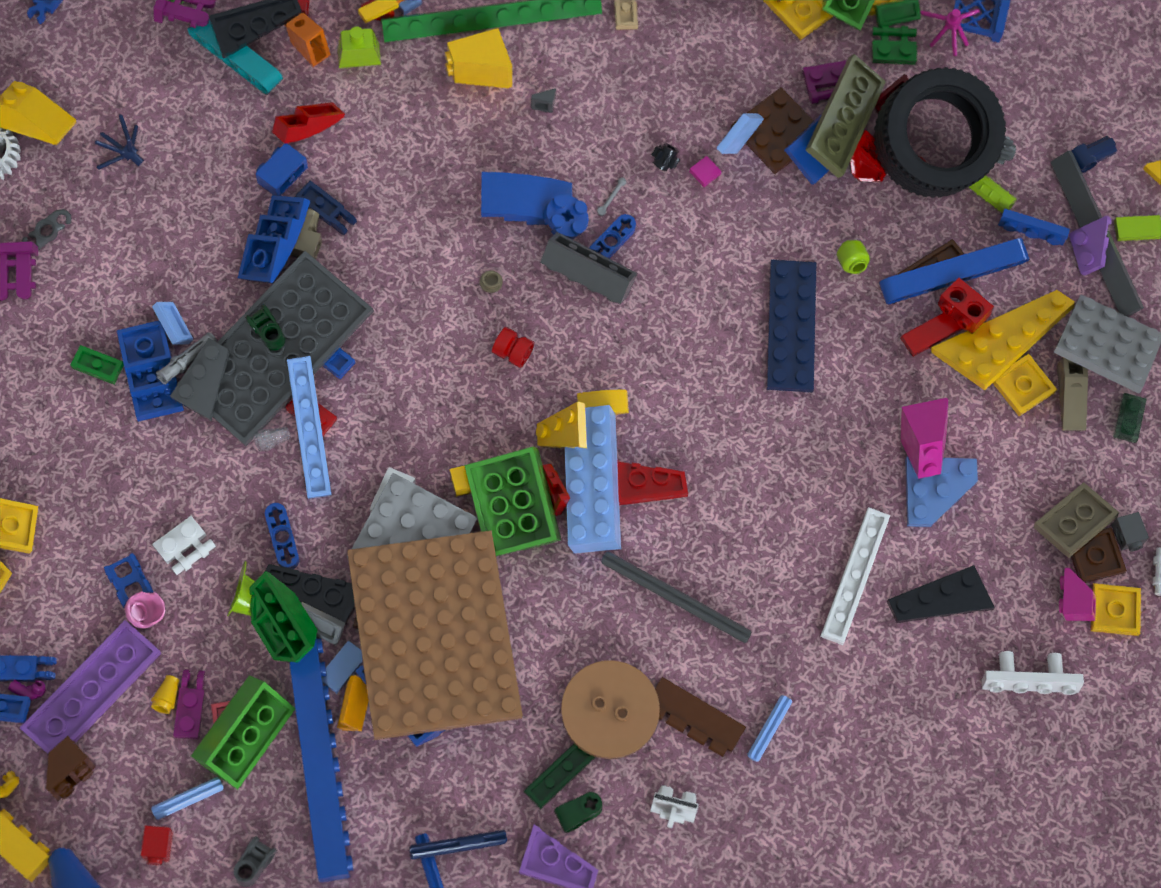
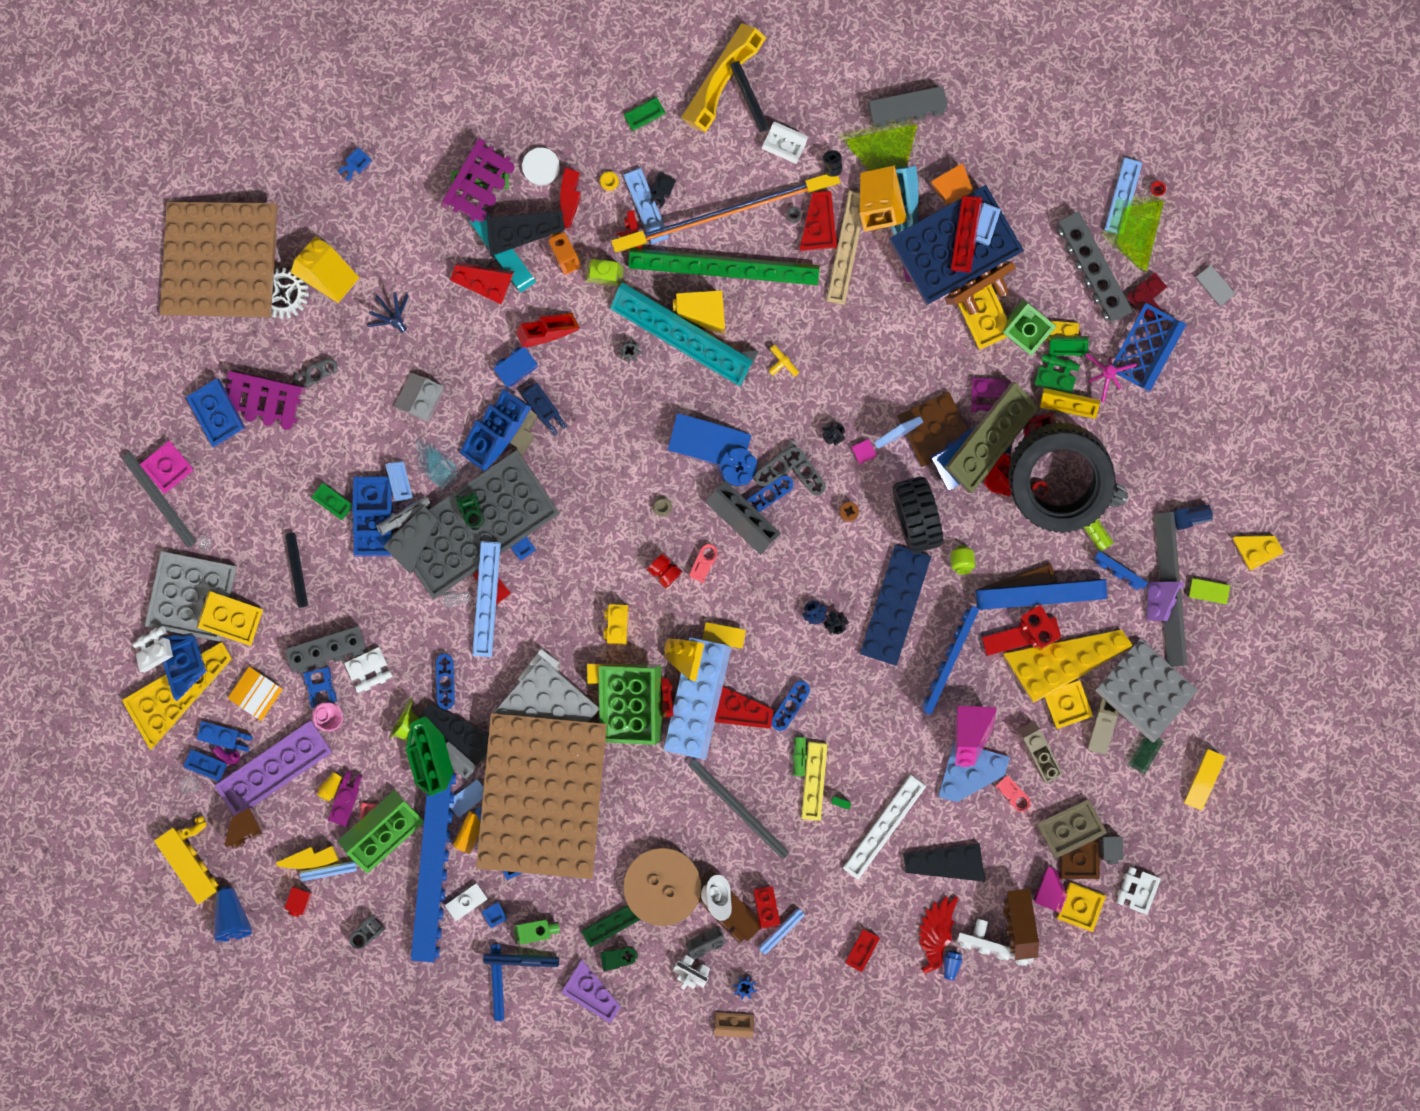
camera: 25 degrees right, 15 degrees up
(49, 606) = (255, 693): none -> slope
(70, 452) = (296, 570): none -> black axle
(126, 532) = (325, 649): none -> dark grey brick
(159, 788) = (310, 859): none -> yellow slope
(177, 227) = (419, 397): none -> light grey slope
(219, 301) = (438, 470): none -> clear light blue slope
(223, 88) = (486, 282): none -> red wing
(371, 792) = (466, 902): none -> white plate
(410, 798) = (494, 915): none -> blue plate
(412, 122) = (628, 356): none -> dark grey gear
(456, 805) = (527, 932): none -> bright green torso
(463, 91) = (681, 334): none -> teal plate
(473, 419) = (617, 624): none -> yellow brick
(555, 332) = (702, 565): none -> coral piece
(586, 98) = (783, 361): none -> yellow piece
(633, 202) = (796, 465): none -> dark grey beam
(680, 702) = (717, 897): none -> white piece
(691, 759) = (697, 947): none -> dark grey hinge
(699, 456) = (778, 715): none -> blue beam
(701, 352) = (814, 612): none -> dark blue gear
(708, 242) = (848, 515): none -> dark orange wheel
(729, 357) = (836, 622): none -> black gear
(731, 519) = (799, 756): none -> bright green pin
(744, 702) = (766, 907): none -> red brick
(745, 814) = (746, 983): none -> blue gear
(745, 858) = (734, 1025): none -> medium nougat slope
(756, 543) = (814, 781): none -> light yellow tile
(790, 210) = (918, 514): none -> black tyre
(796, 558) = (841, 803): none -> green tile
(874, 361) = (952, 652): none -> blue plate
(874, 725) = (862, 950): none -> red plate
(914, 65) = (1070, 403): none -> yellow plate
(956, 683) = (937, 933): none -> red animal
(987, 714) = (952, 964): none -> blue cone
(993, 498) = (1012, 792): none -> coral piece
(1009, 443) = (1039, 751): none -> dark tan slope
(1058, 639) = (1021, 924): none -> reddish brown brick

